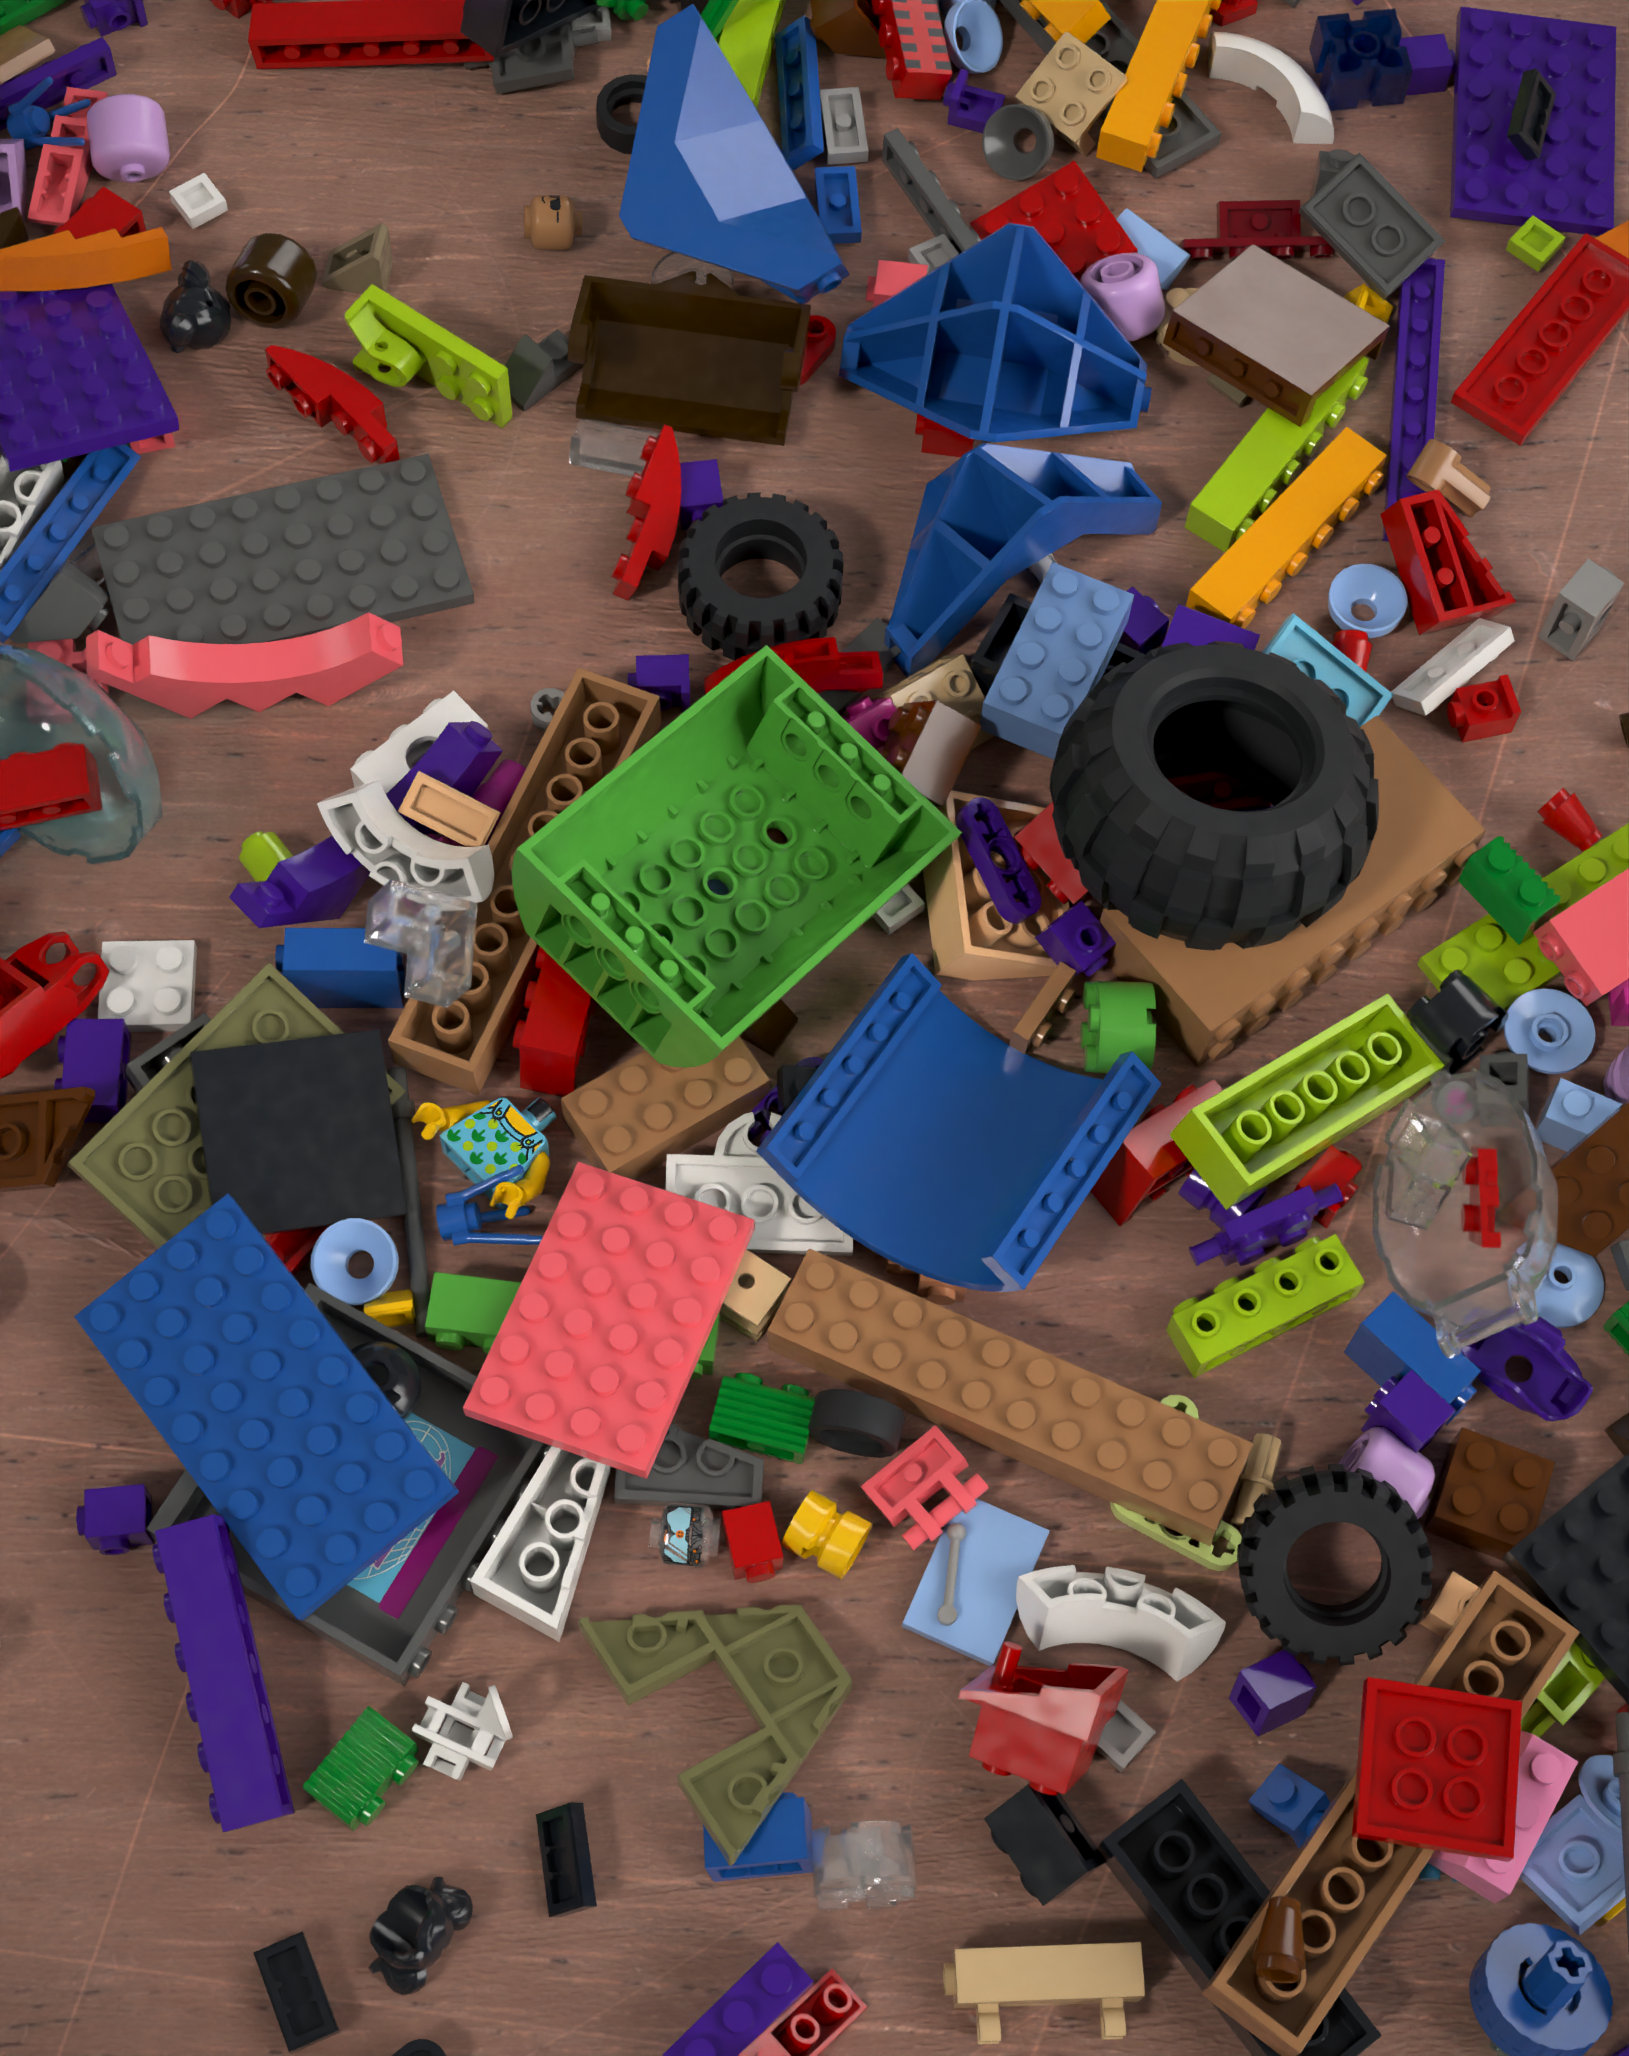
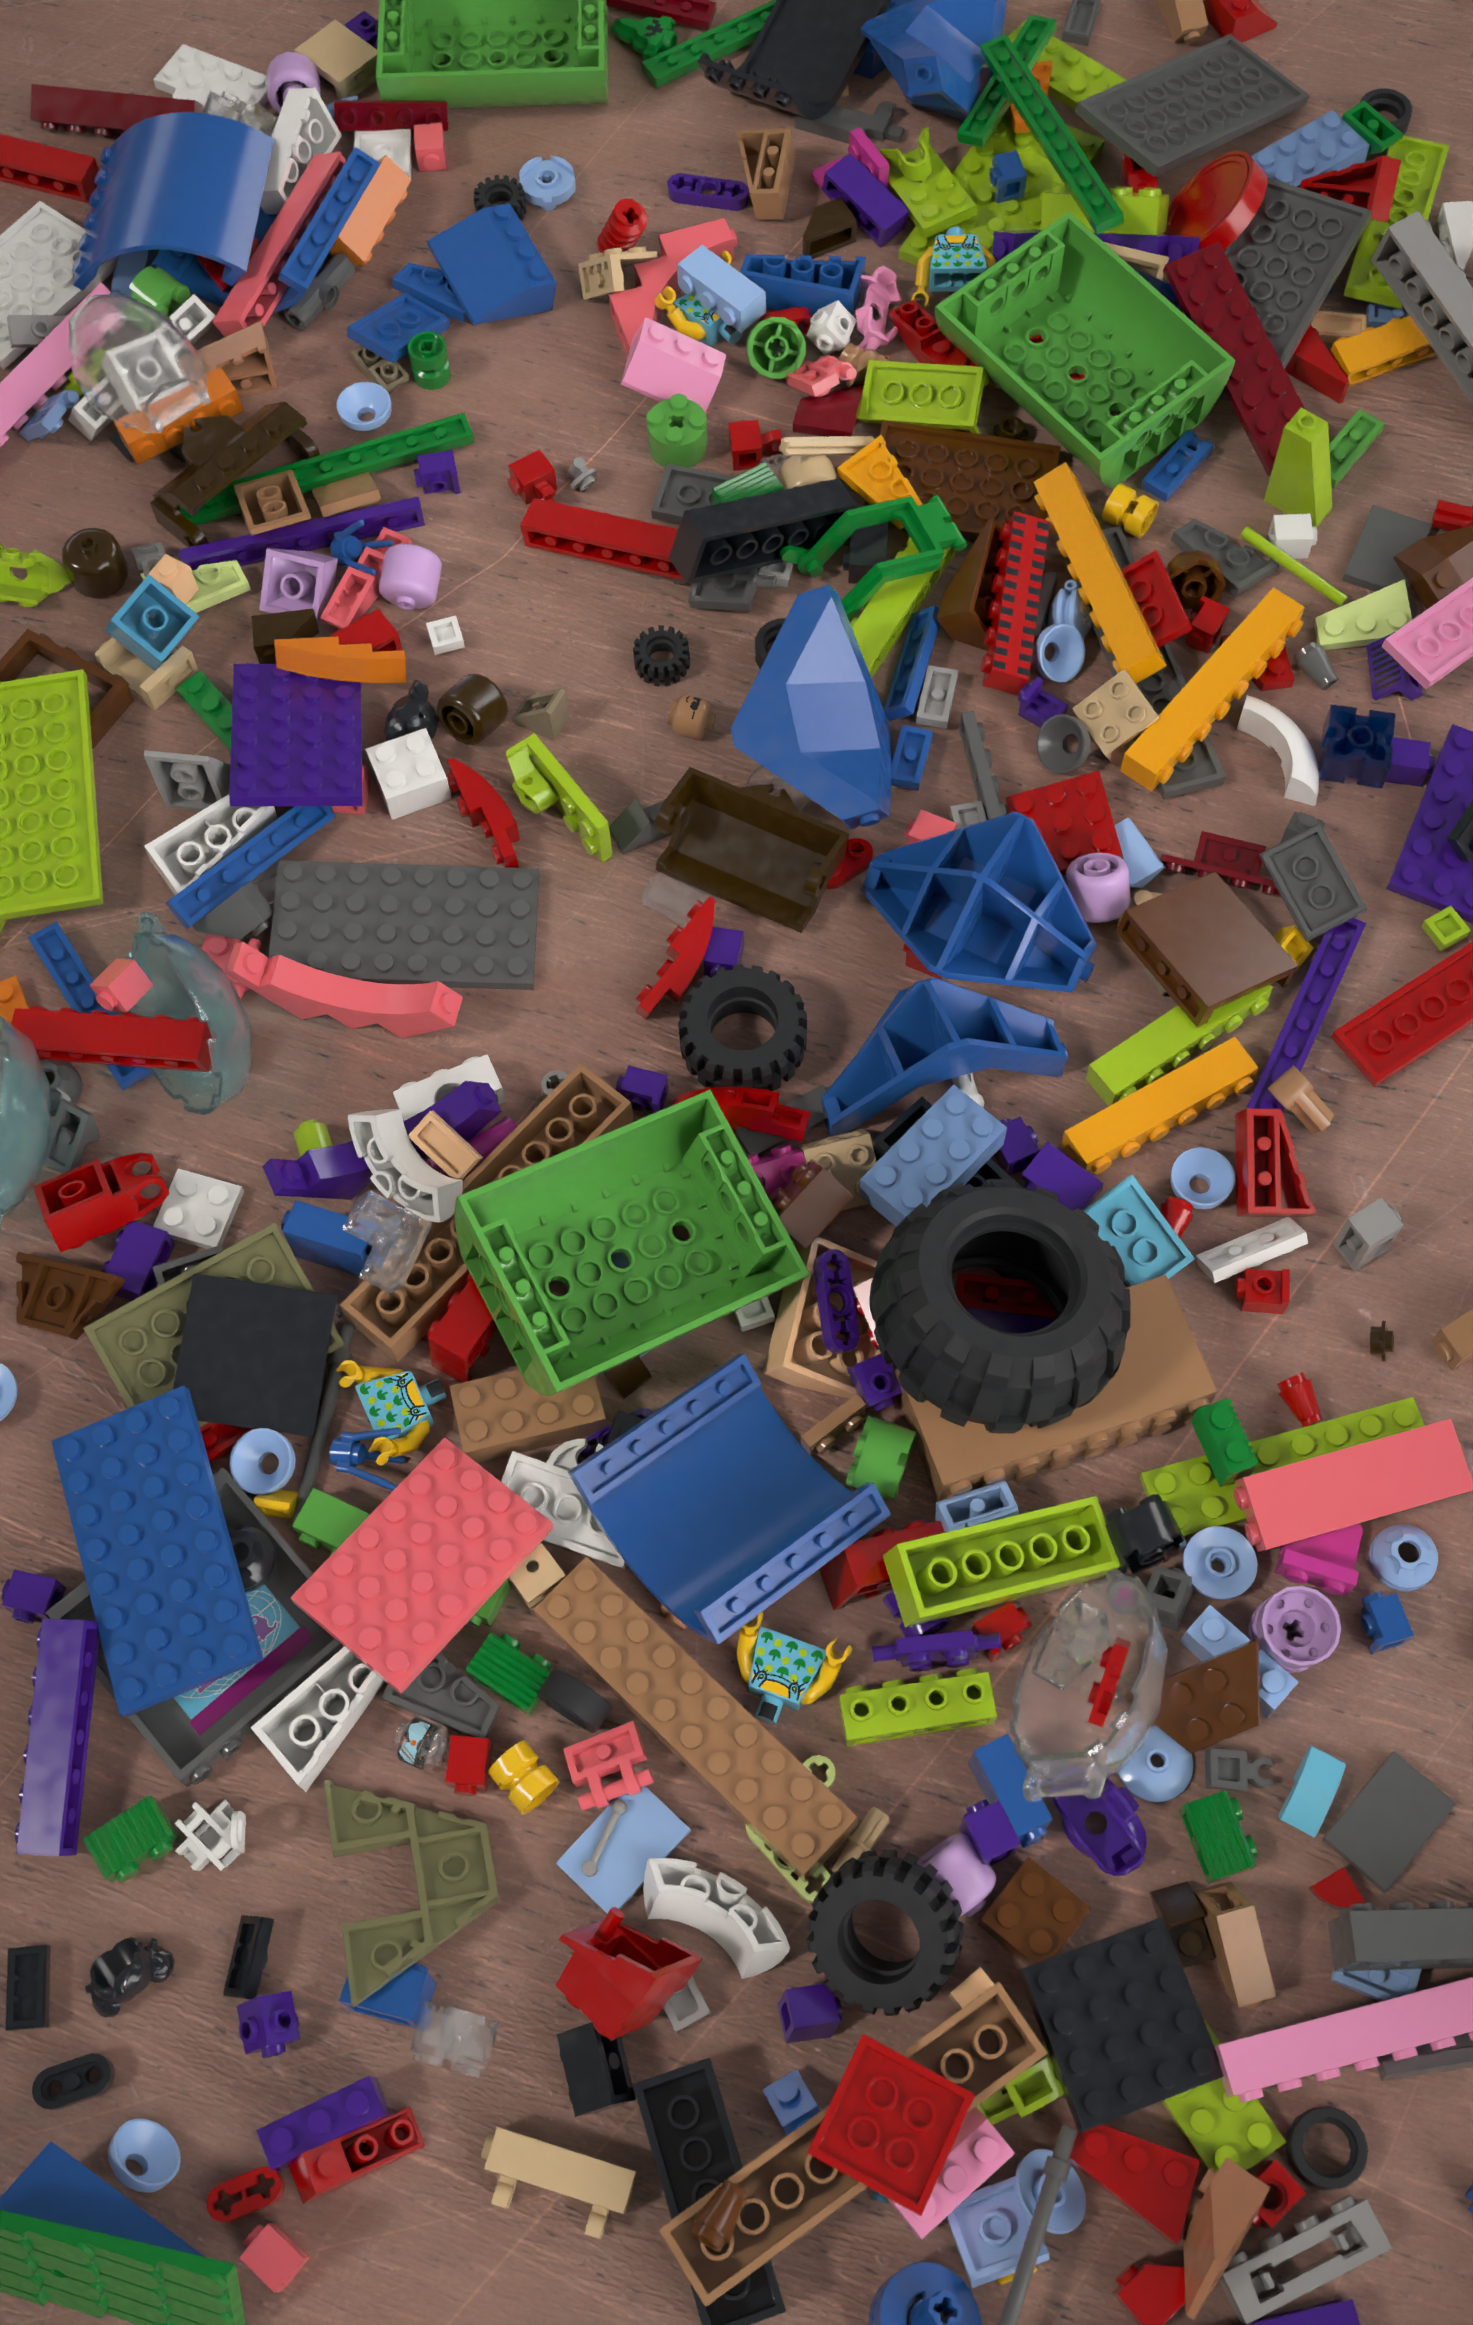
camera: 25 degrees right, 0 degrees up
(218, 380) = (408, 773): none -> white brick
(484, 141) = (657, 641): none -> black tyre
(623, 1928) = (268, 2024): none -> dark purple brick
(1094, 1307) = (784, 1669): none -> torso
(1251, 1049) = (976, 1507): none -> light blue brick

